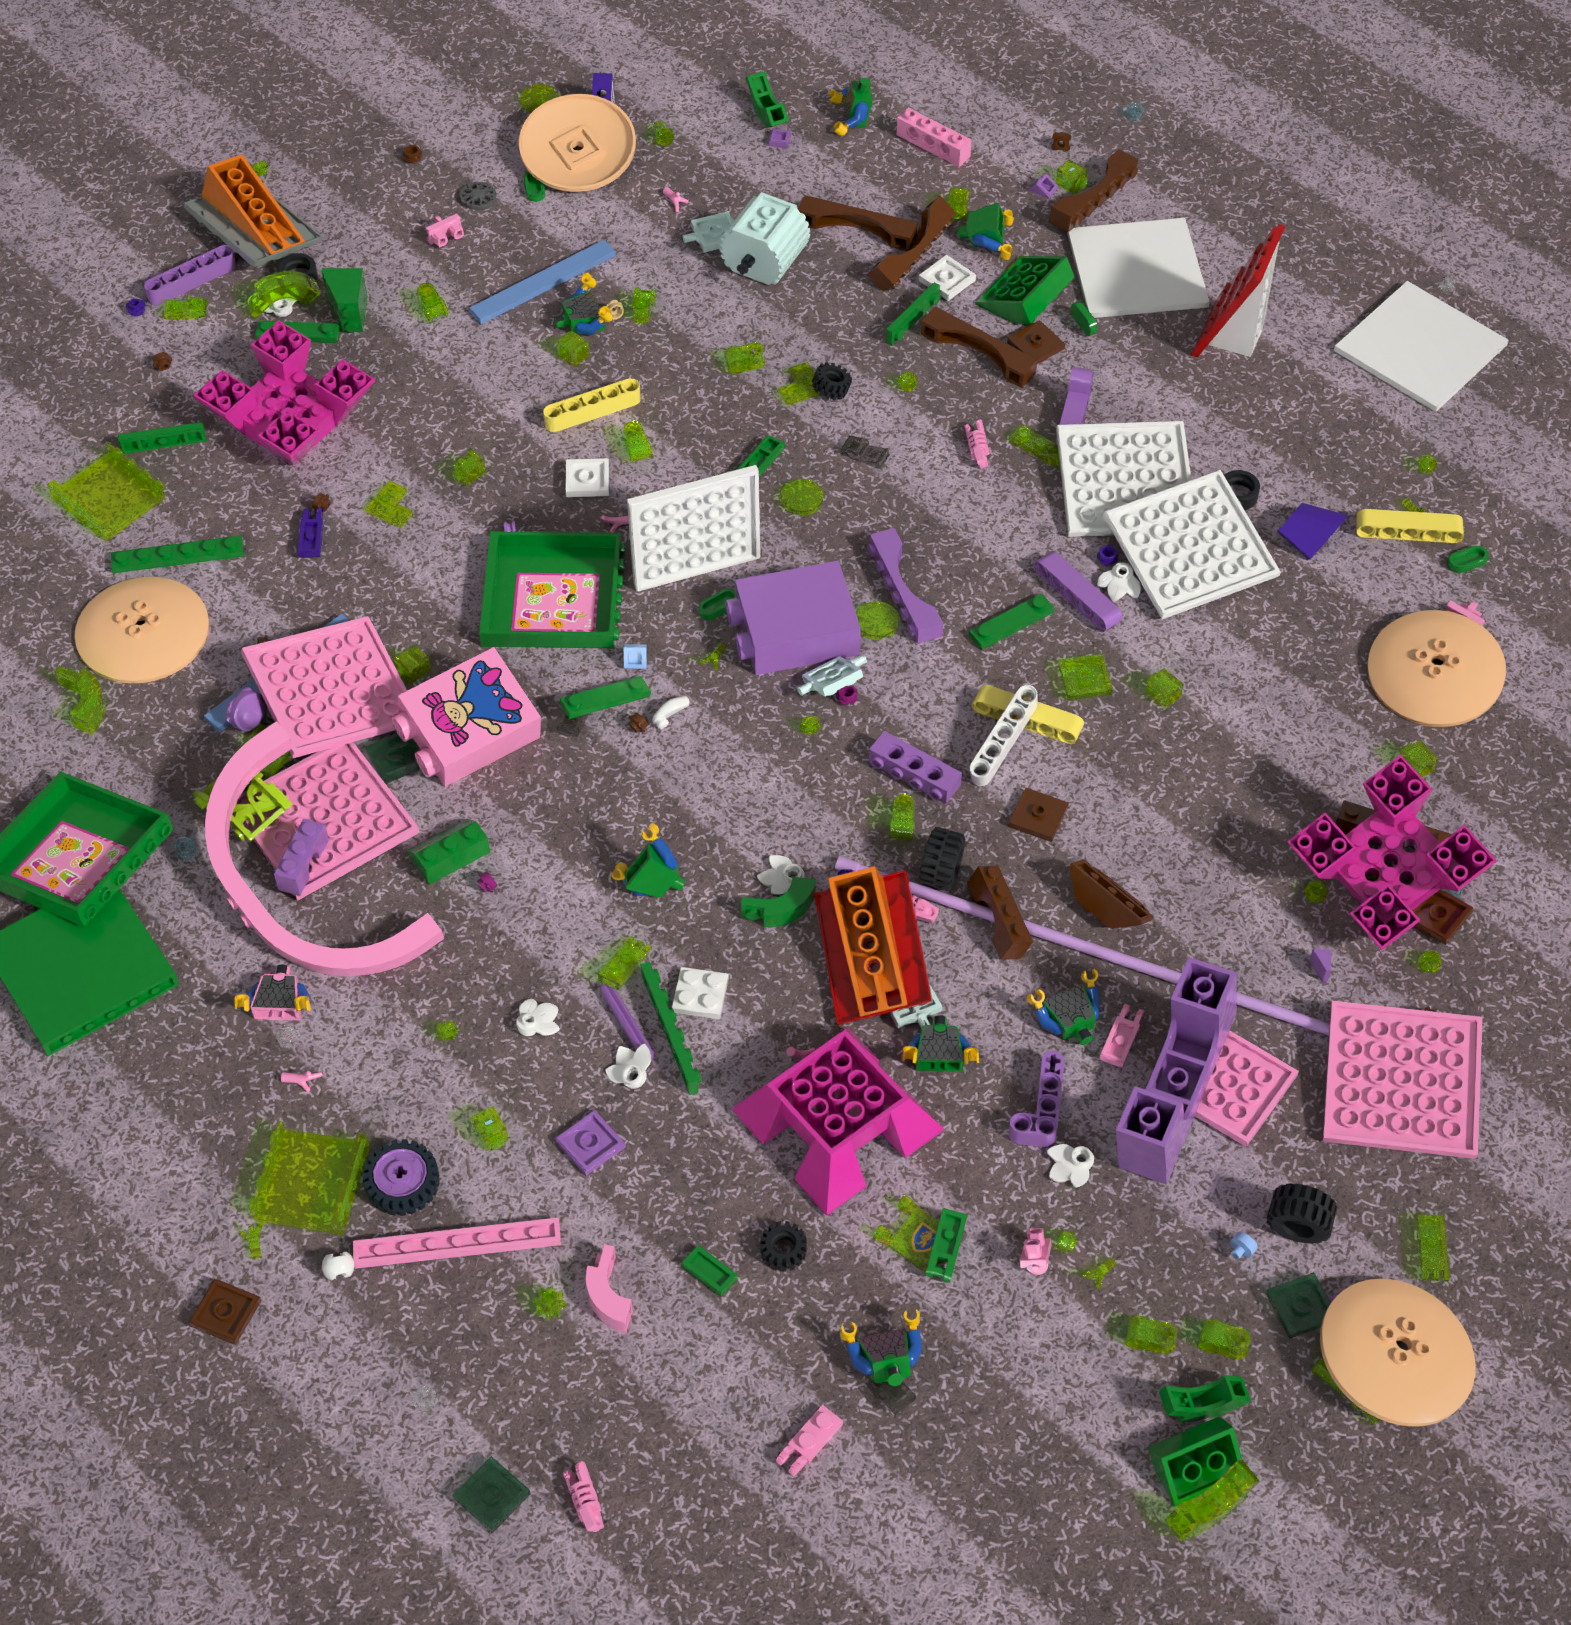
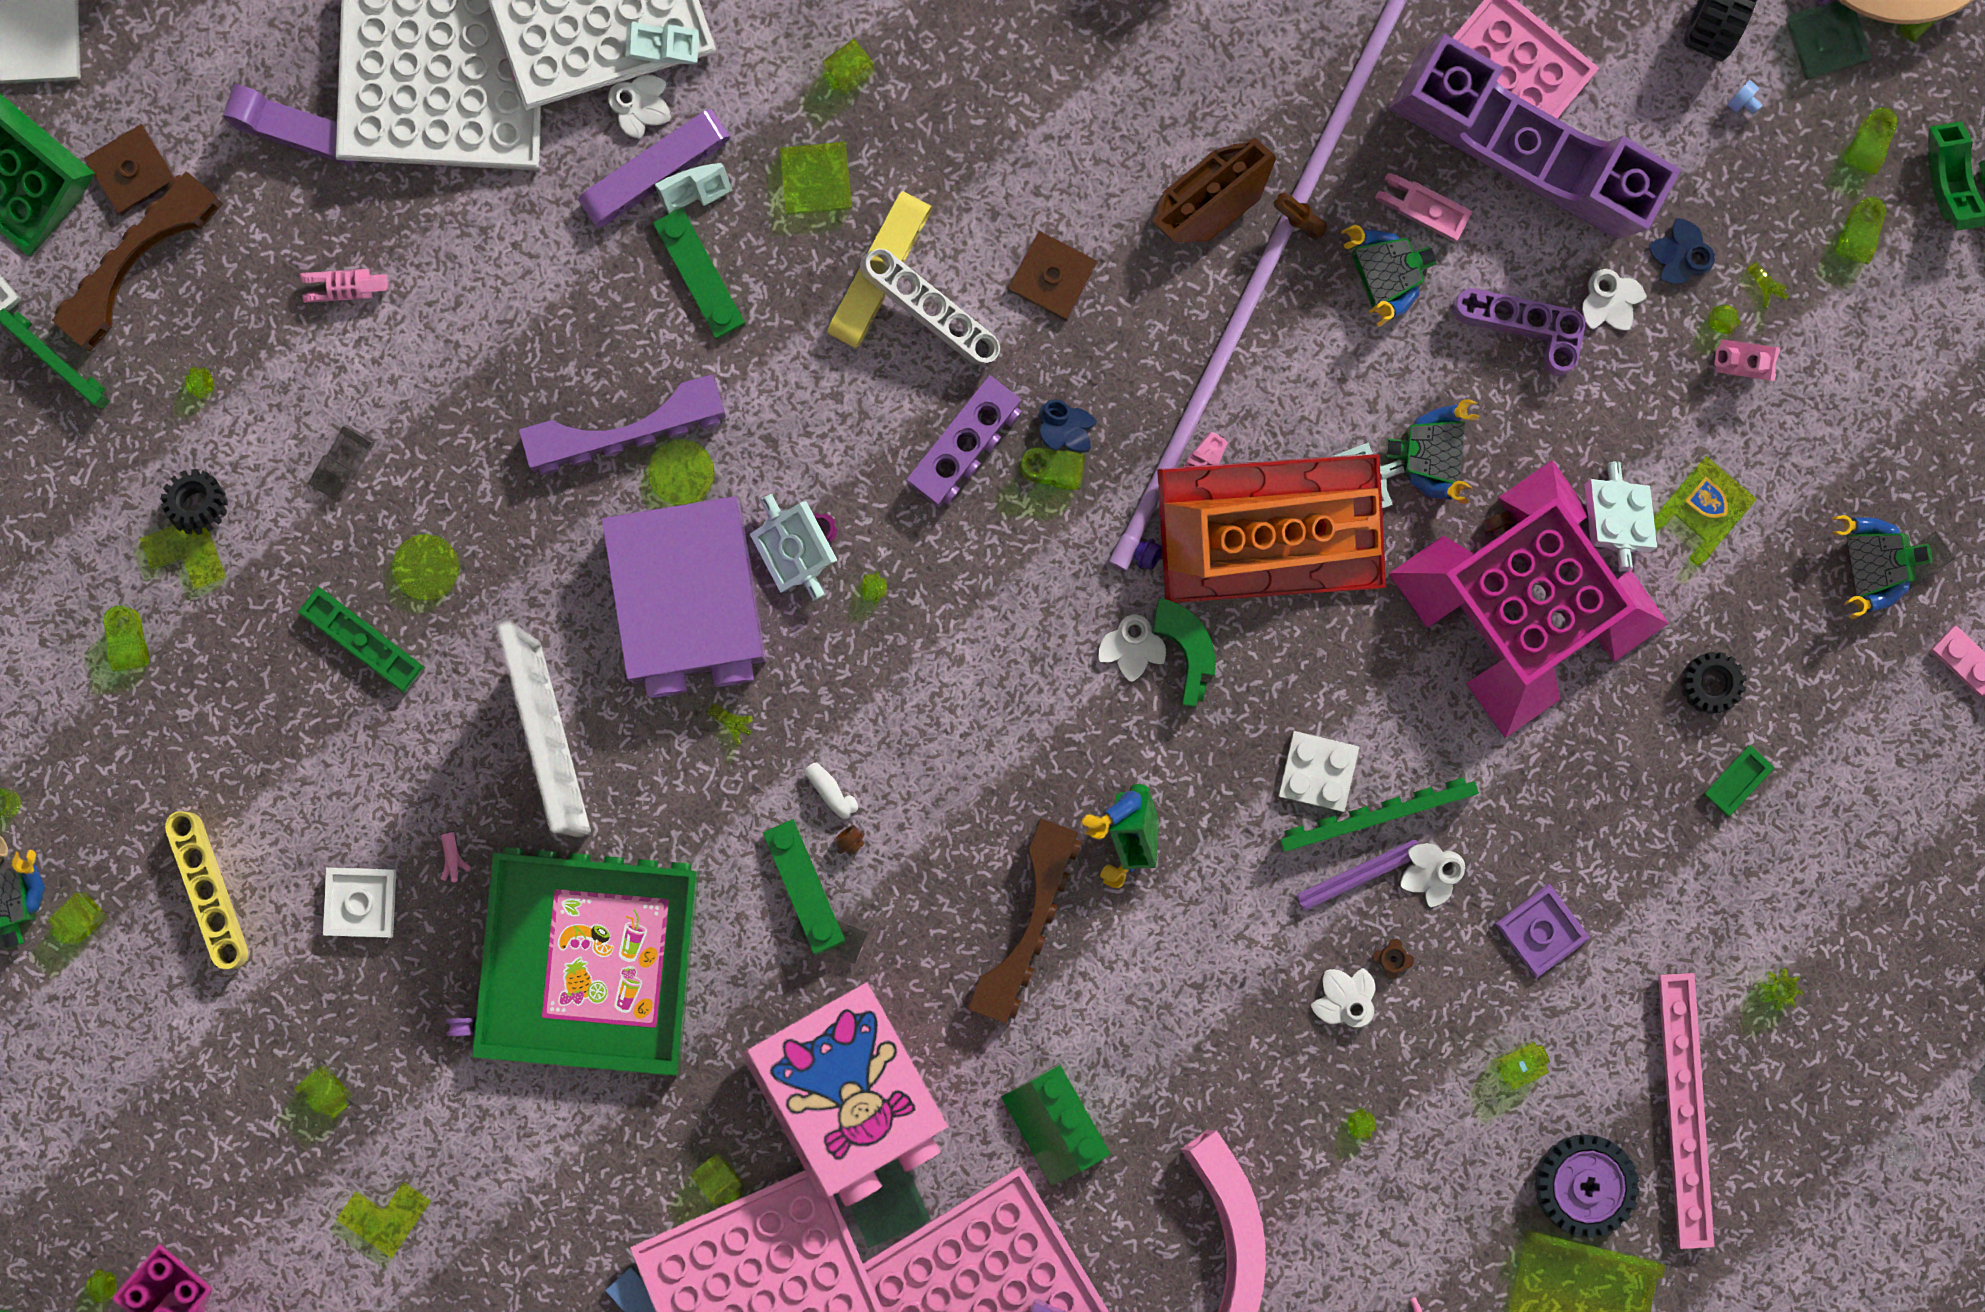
camera: 90 degrees left, 30 degrees up
(338, 1265) = (1715, 1267): white piece -> none
(486, 882) = (1117, 1067): magenta plate -> none
(540, 809) = (1049, 854): none -> reddish brown arch
(562, 1041) = (1393, 968): none -> reddish brown plate
(607, 1305) = (1785, 916): bright pink arch -> none
(624, 963) = (1269, 875): clear neon green hinge -> none
(635, 656) = (727, 839): light blue tile -> none
(637, 442) = (300, 820): clear neon green piece -> none
(715, 605) = (629, 709): green tile -> none
(798, 1054) = (1433, 641): bright pink bar -> none
(904, 1170) = (1620, 516): none -> light aqua plate
(929, 819) = (1065, 426): none -> dark blue plate
(942, 858) = (1143, 416): black tyre -> none
(946, 1244) = (1726, 472): green plate -> none
(1010, 934) = (1261, 336): reddish brown arch -> none
(1036, 445) = (351, 194): clear neon green plate -> none
(1069, 610) = (699, 183): none -> light aqua slope
(1084, 318) = (90, 86): green tile -> none
(1102, 949) = (1300, 215): none -> reddish brown axle
(1109, 551) = (583, 107): dark purple plate -> none
(1115, 1209) = (1678, 250): none -> dark blue plate
(1159, 580) = (662, 44): none -> light aqua slope

